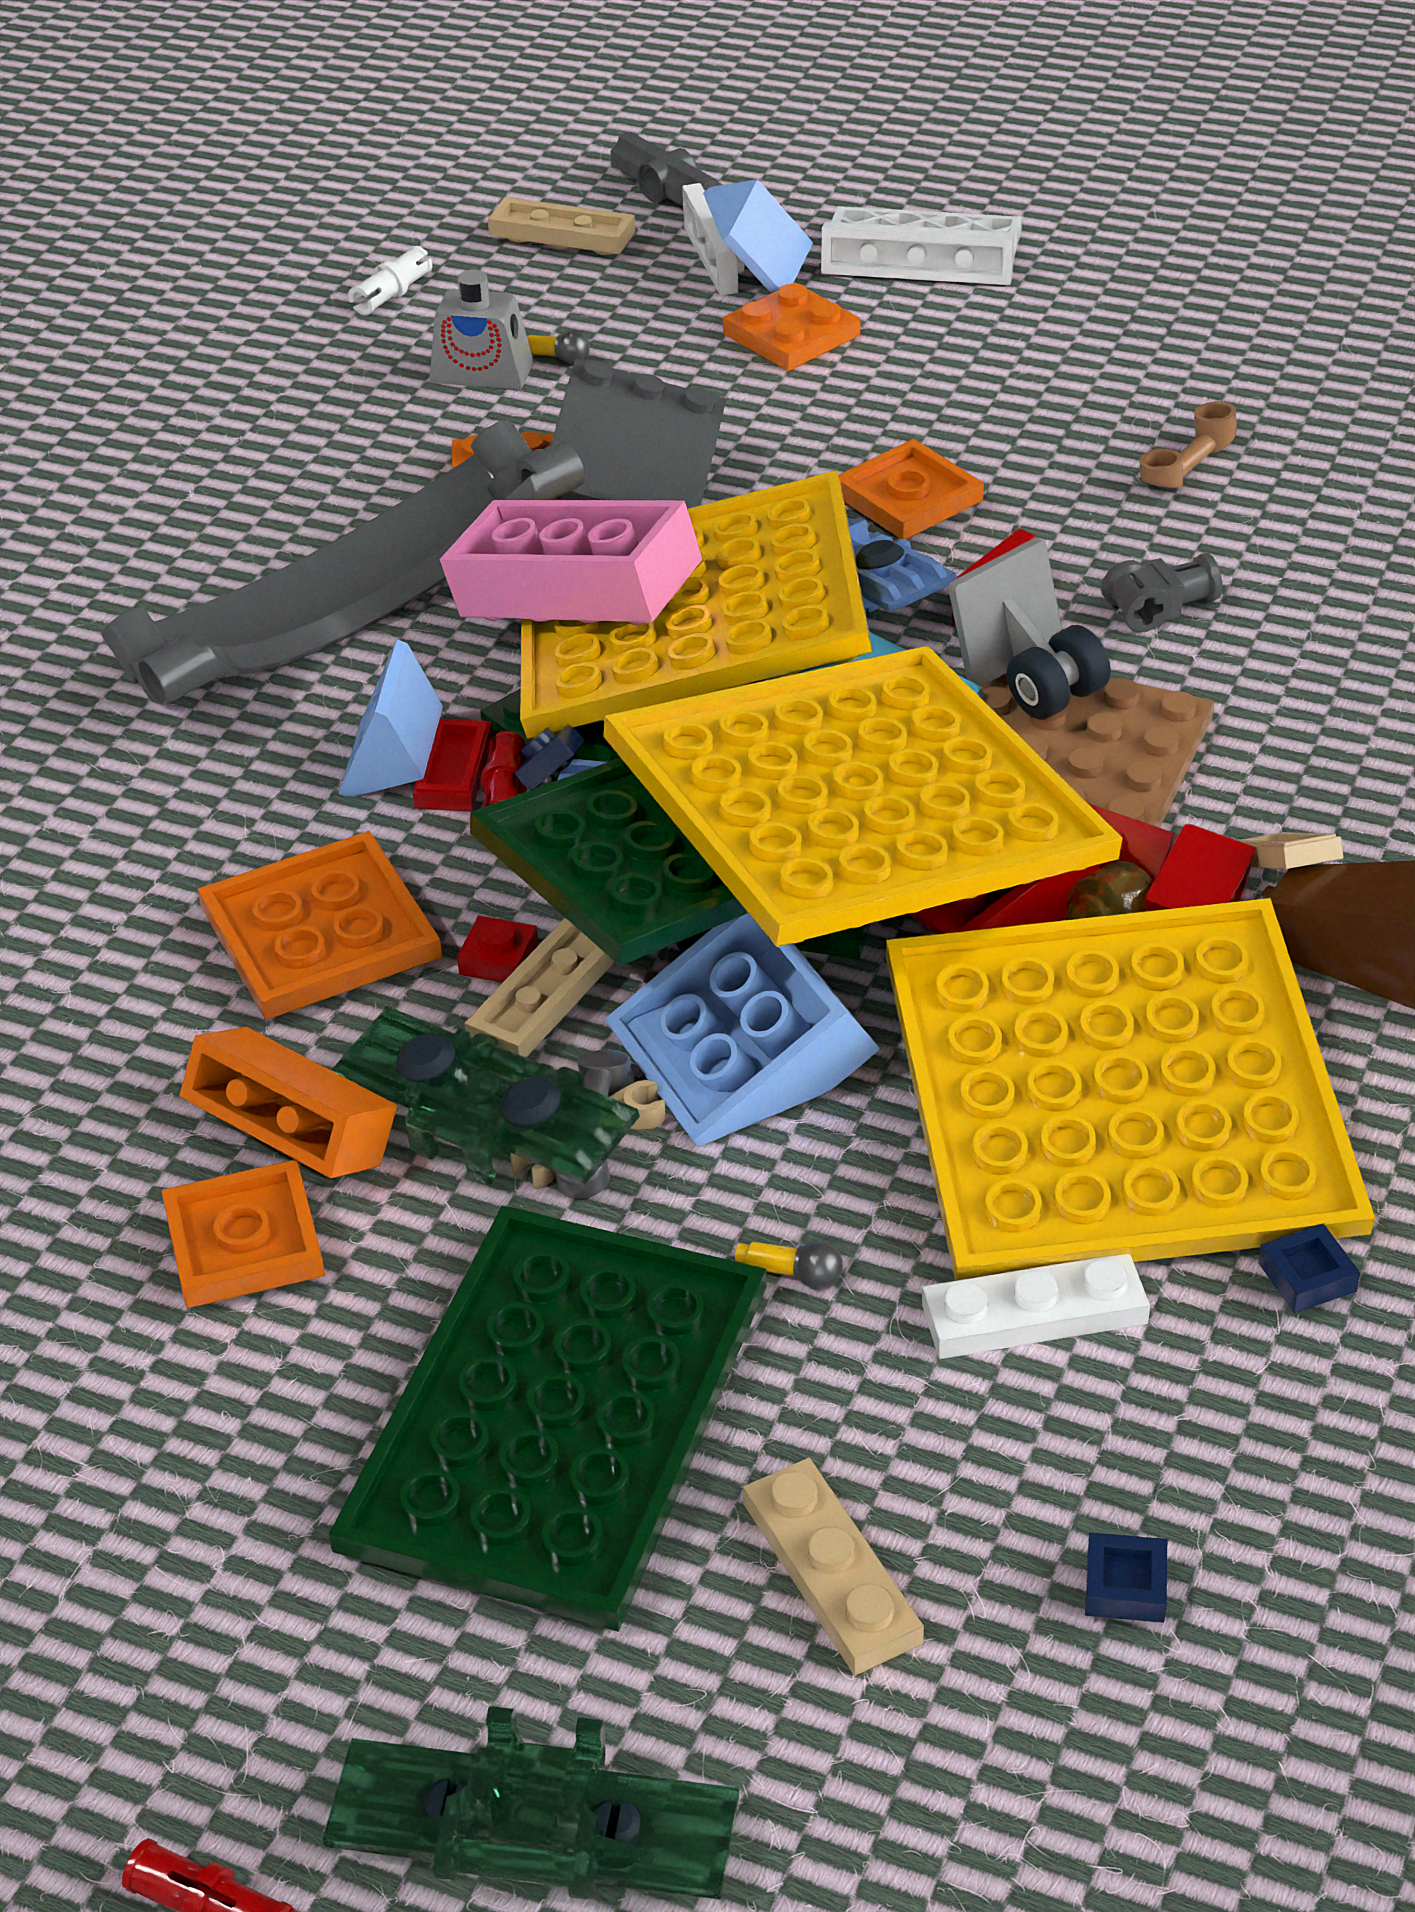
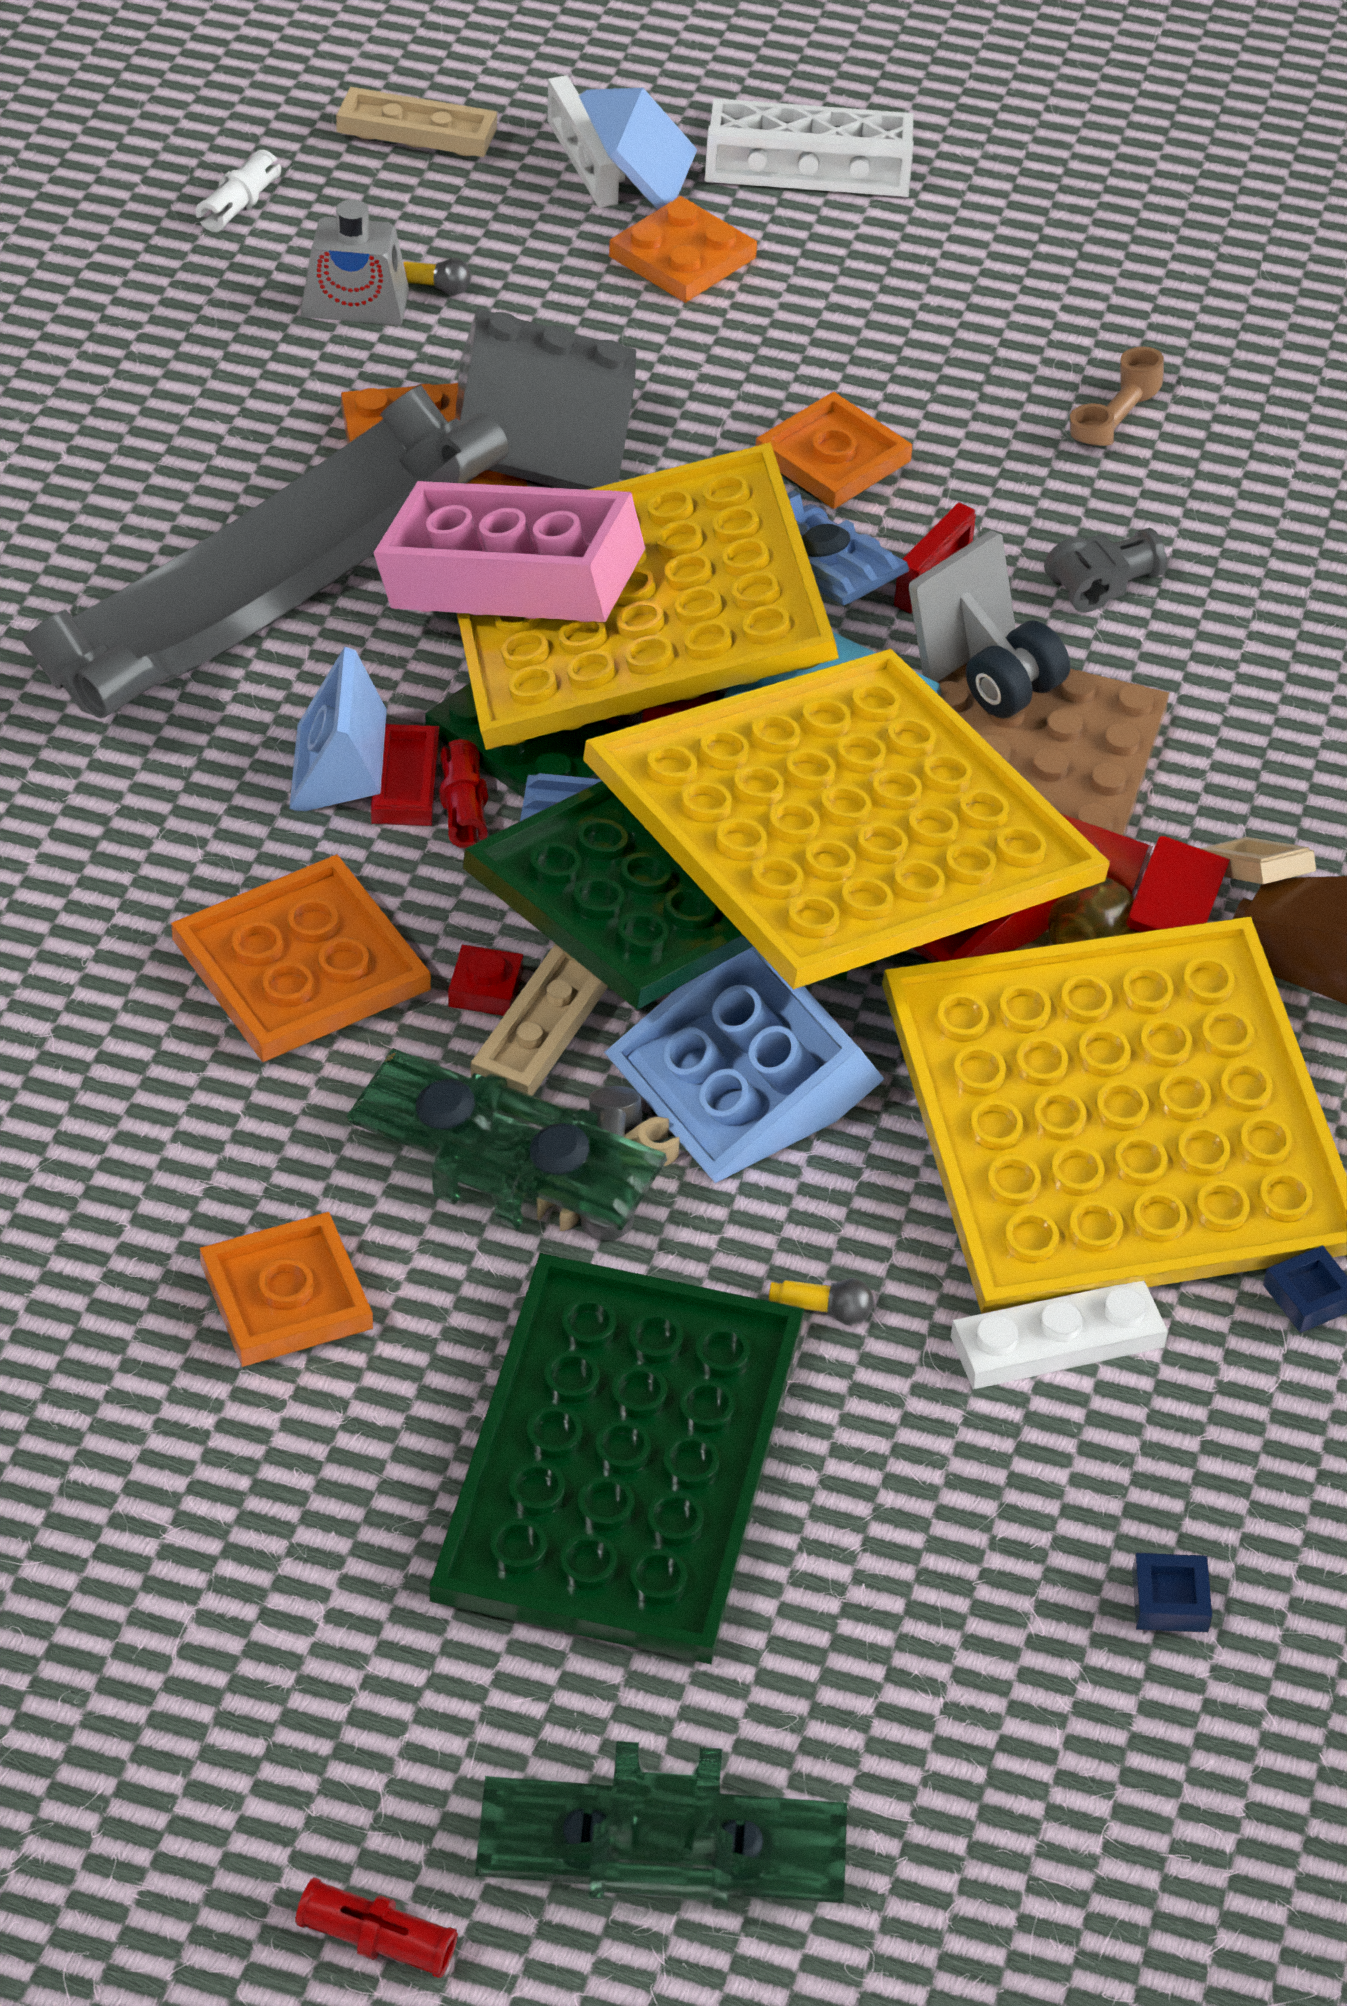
camera: 10 degrees left, 5 degrees up
(288, 1101) = (310, 1151): orange brick -> none
(547, 753) = (510, 768): dark blue plate -> none
(656, 170) = (518, 56): dark grey piece -> none
(833, 1566) = (900, 1593): tan plate -> none

